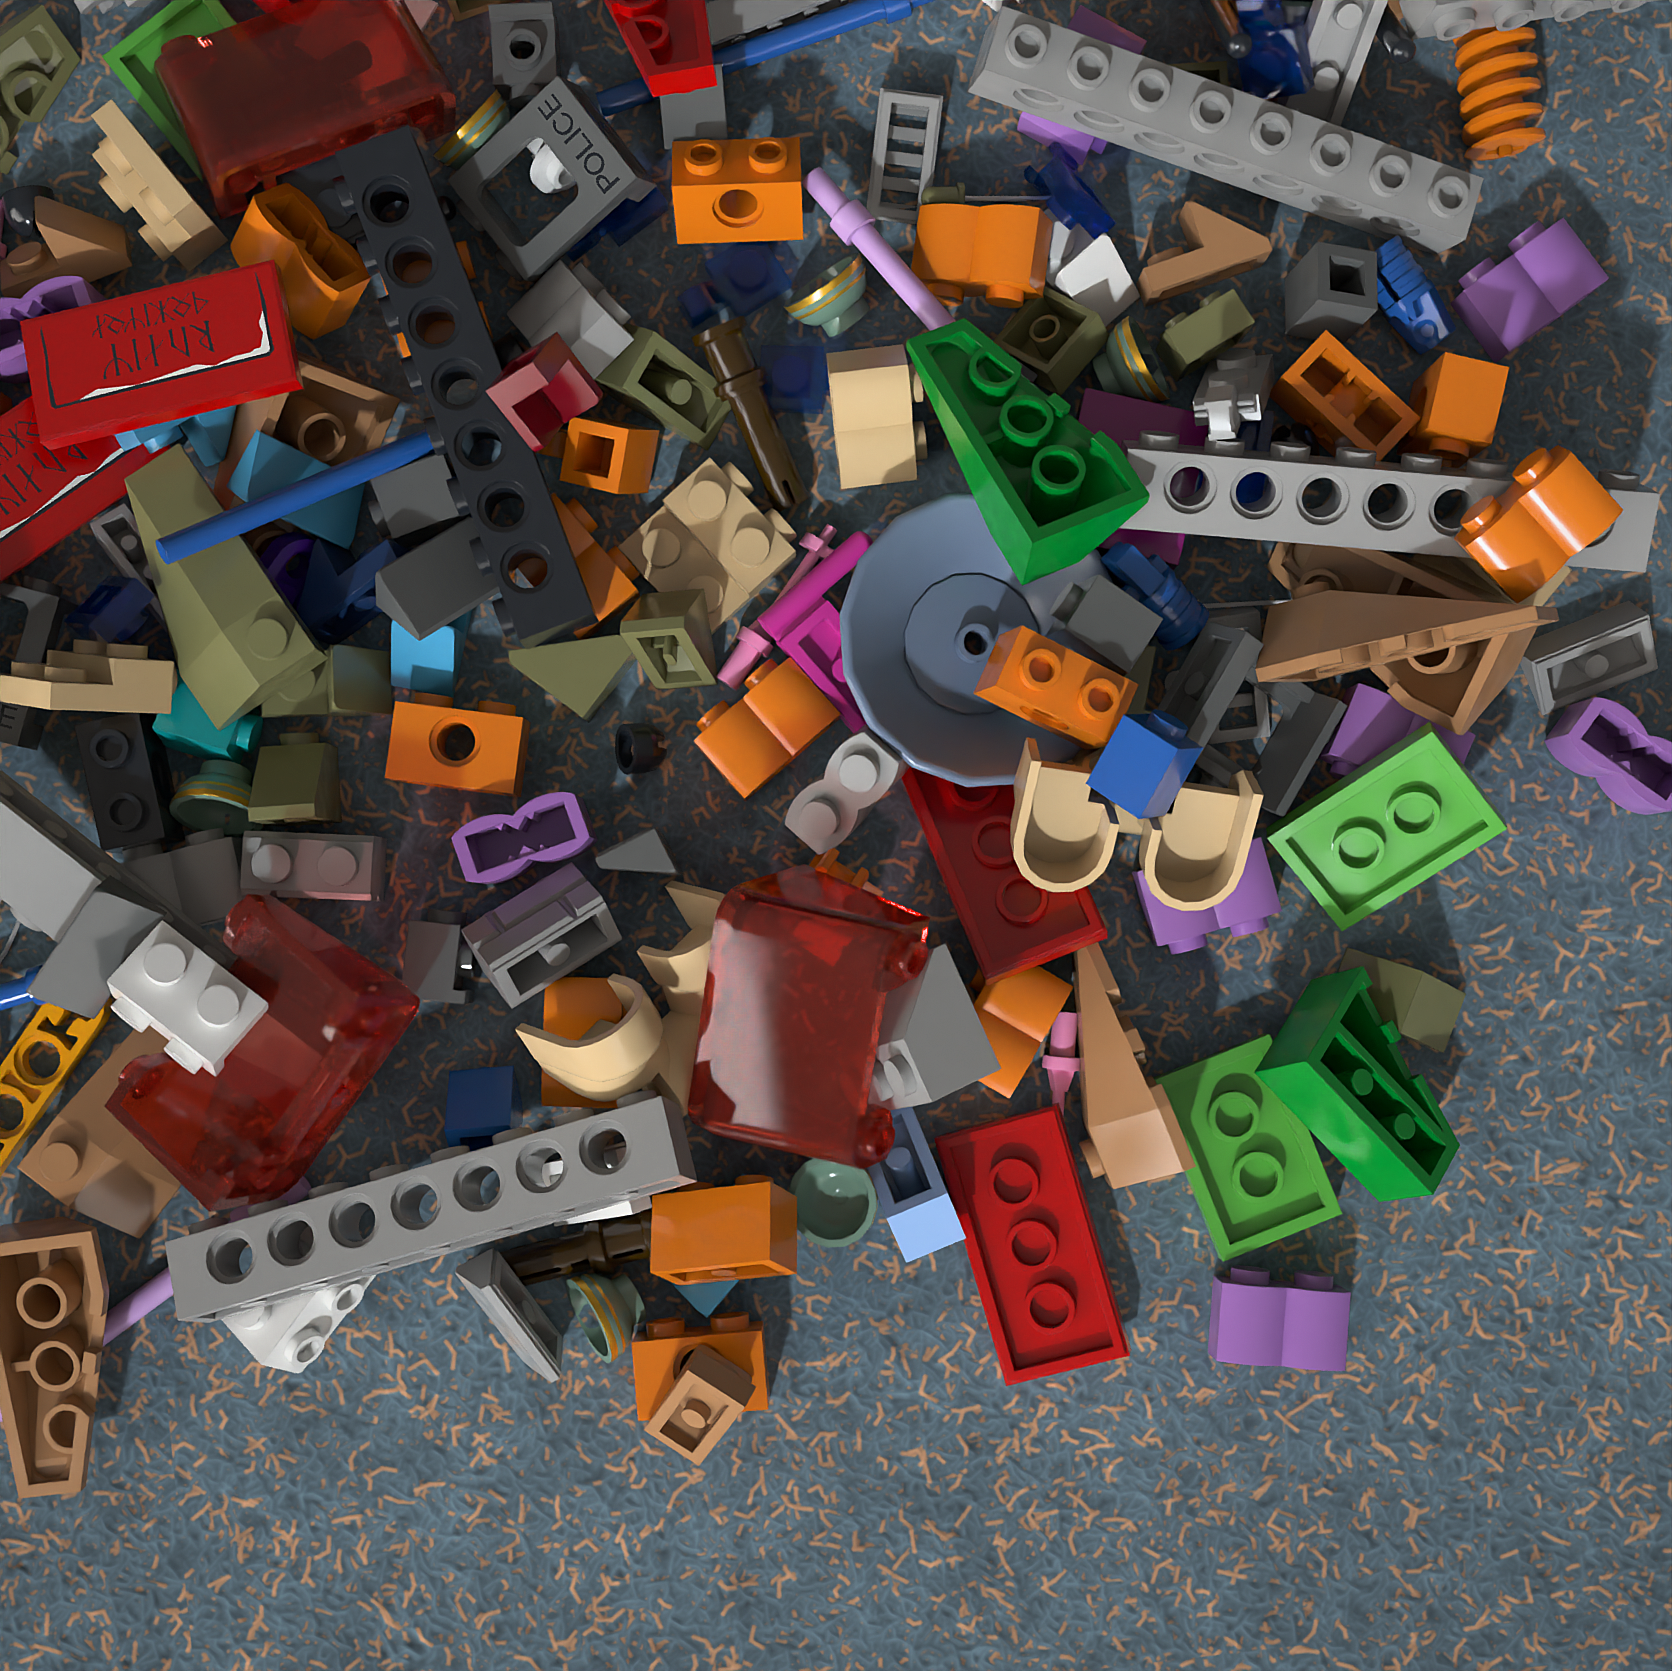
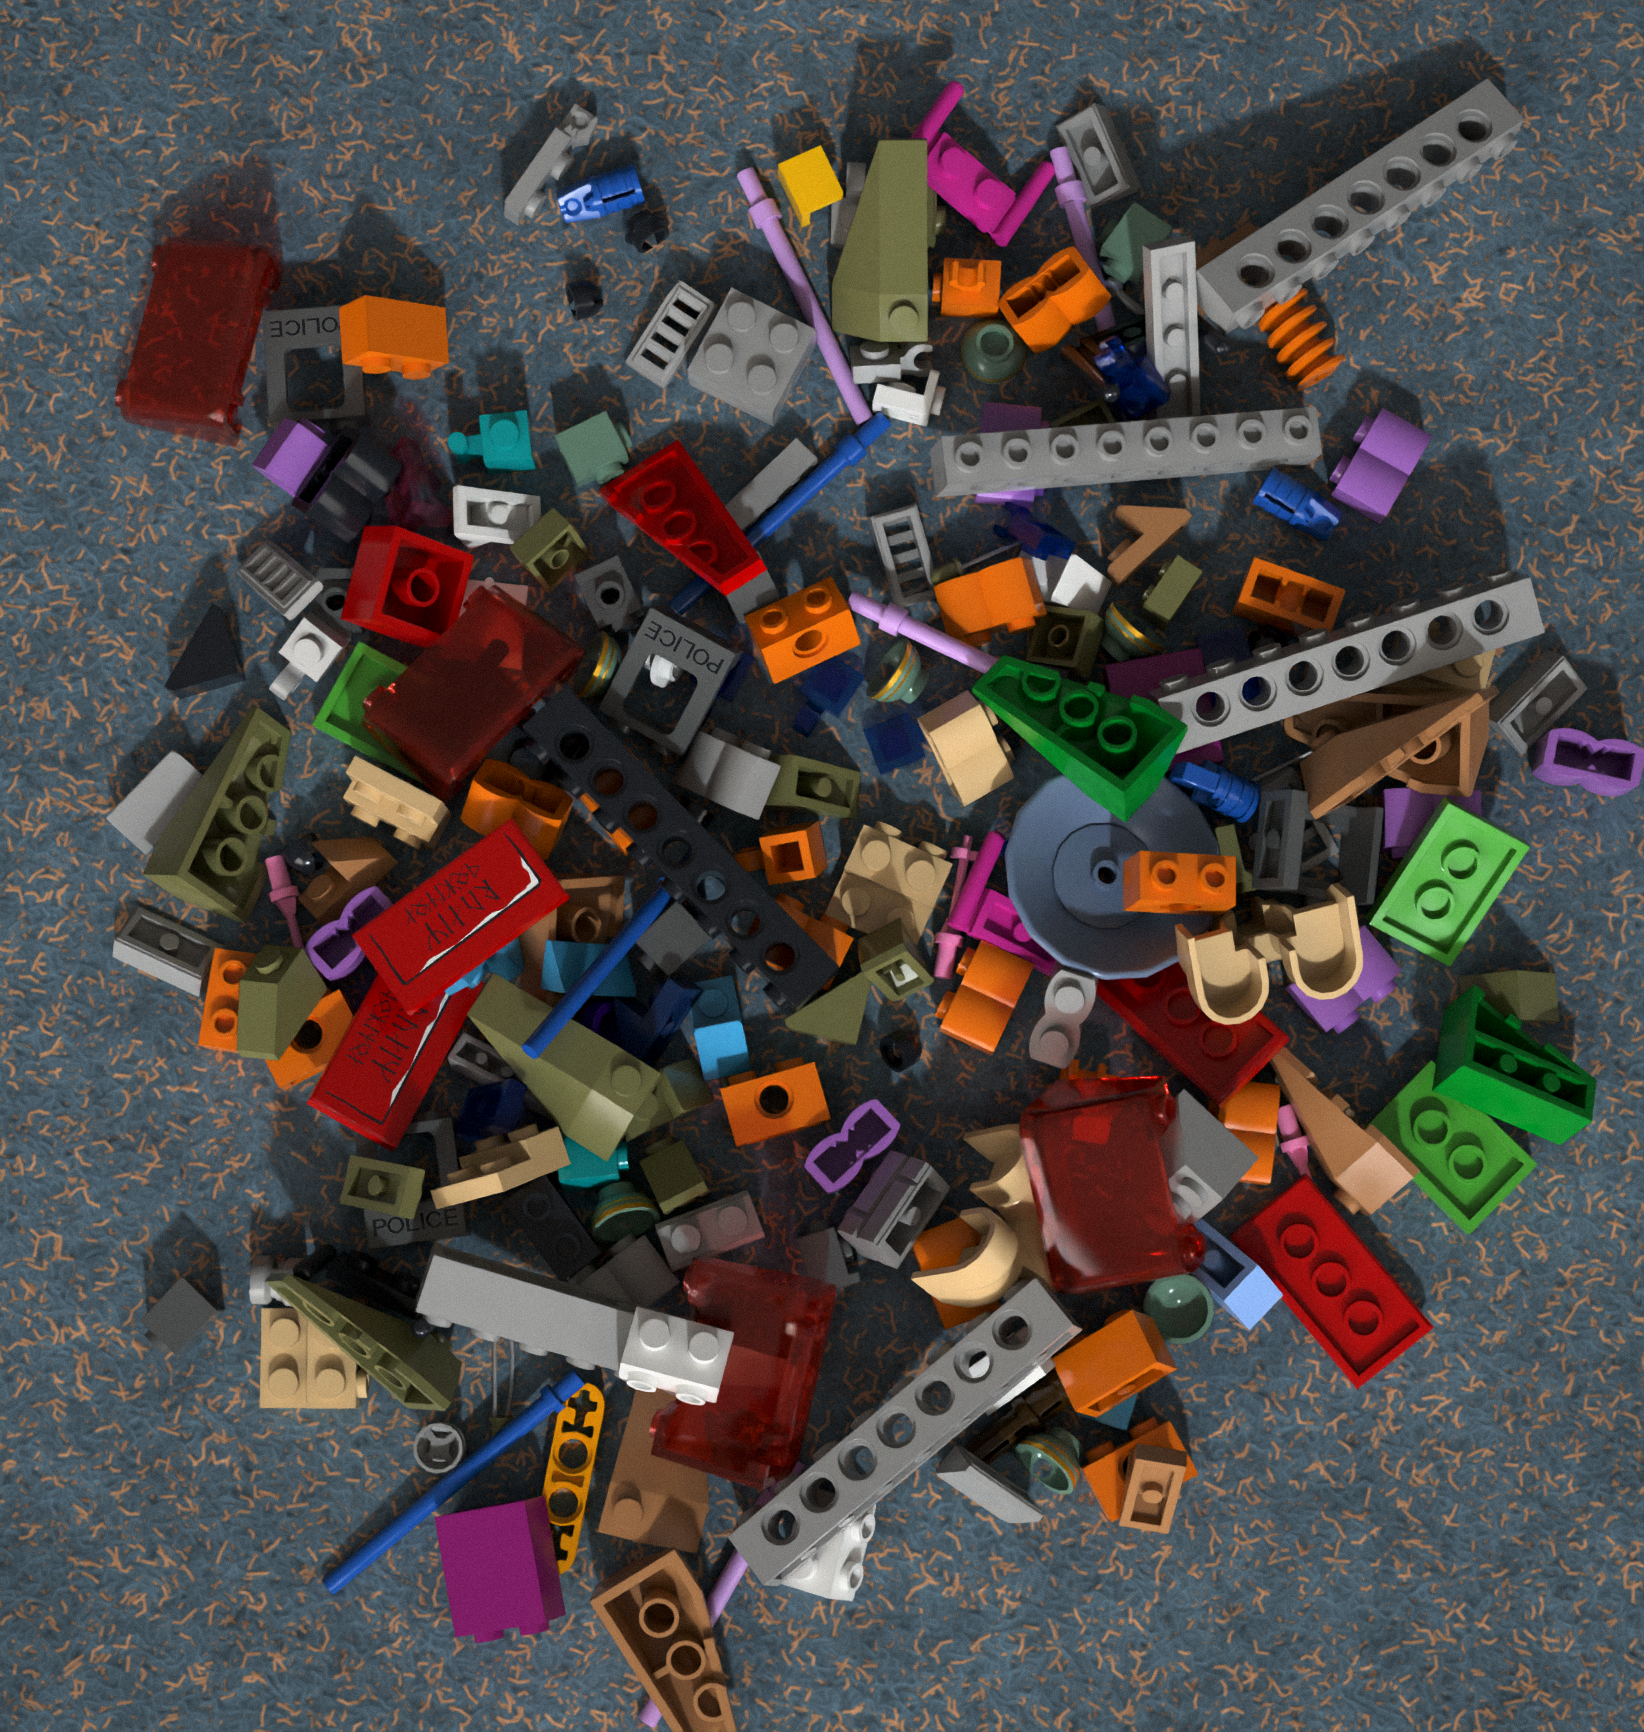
camera: 20 degrees left, 5 degrees down
(94, 947) = (598, 1347): slope -> none
(434, 582) = (714, 992): dark grey slope -> none
(481, 1106) = (903, 1347): blue brick -> none
(543, 391) = (737, 827): dark red panel -> none
(641, 853) = (942, 1121): dark grey slope -> none
(741, 384) = (864, 764): dark brown pin -> none
(1102, 623) = (1191, 825): dark grey brick -> none
(1145, 763) = (1264, 908): blue brick -> none
(1233, 391) = (1209, 625): light grey hinge -> none
(1279, 1321) = (1526, 1259): medium lavender brick -> none
(1331, 291) = (1245, 527): dark grey brick -> none
(1456, 408) = (1367, 573): orange brick -> none
(1537, 522) = (1455, 633): orange brick -> none

